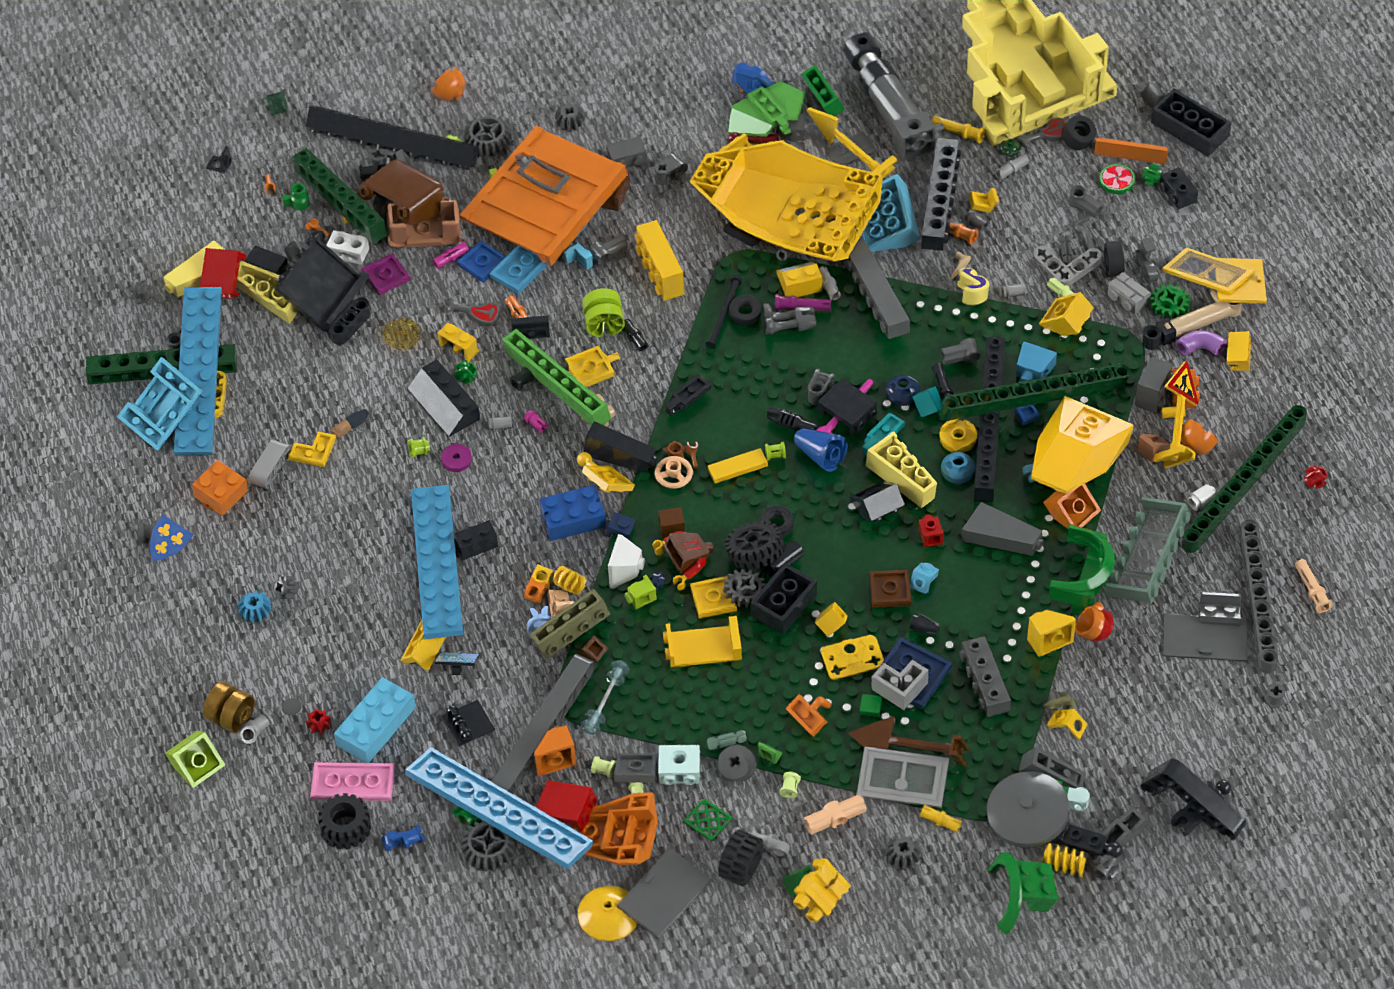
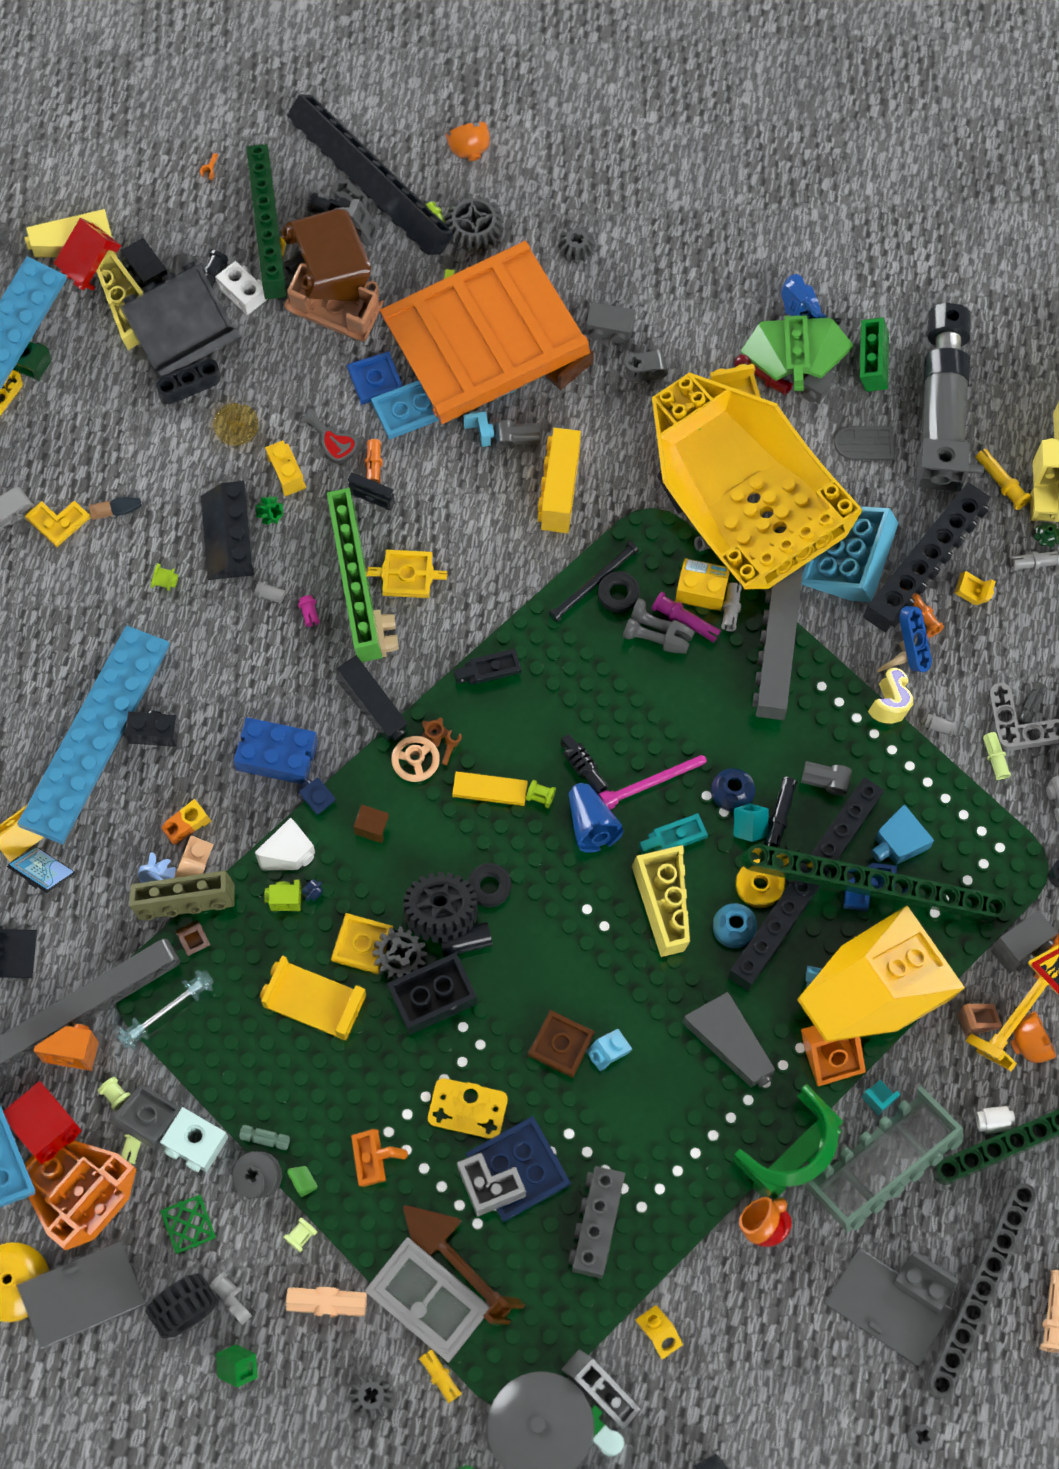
camera: 25 degrees right, 15 degrees up
(225, 161) = (177, 112): black bracket -> none
(277, 103) = (277, 71): clear green slope -> none
(298, 199) = (226, 199): green piece -> none
(314, 225) = (227, 247): orange hand -> none
(386, 274) = (263, 341): magenta tile -> none
(450, 255) = (329, 354): dark pink pin -> none
(453, 451) = (198, 621): magenta piece -> none
(521, 378) = (325, 549): black bush -> none
(524, 161) = (481, 281): dark grey sword -> none
(569, 580) = (218, 837): yellow gear -> none
(603, 311) = (459, 511): lime wheel -> none
(604, 476) = (336, 727): yellow plate -> none
(635, 335) = (481, 558): black pin -> none
(686, 552) = (362, 875): reddish brown torso -> none
(819, 386) = (644, 733): dark grey piece -> none
(820, 890) = (244, 1399): yellow hips -> none
(828, 127) = (878, 488): yellow piece -> none
(831, 619) = (471, 1047): yellow panel -> none
(848, 406) = (655, 780): black panel -> none
(870, 705) = (448, 1184): green tile -> none
(877, 500) = (615, 921): slope -> none
(923, 624) = (569, 1112): black cone -> none
(930, 527) = (648, 1001): red brick -> none
(965, 244) = (913, 623): none -> blue beam
(976, 220) = (951, 609): dark grey pin -> none
(1050, 631) = (703, 1208): yellow slope -> none
(1064, 700) = (671, 1302): olive piece -> none
(1067, 314) = (979, 793): yellow slope -> none
(1120, 522) = (879, 1097): none -> teal panel
(1169, 412) = (1025, 983): yellow pin -> none

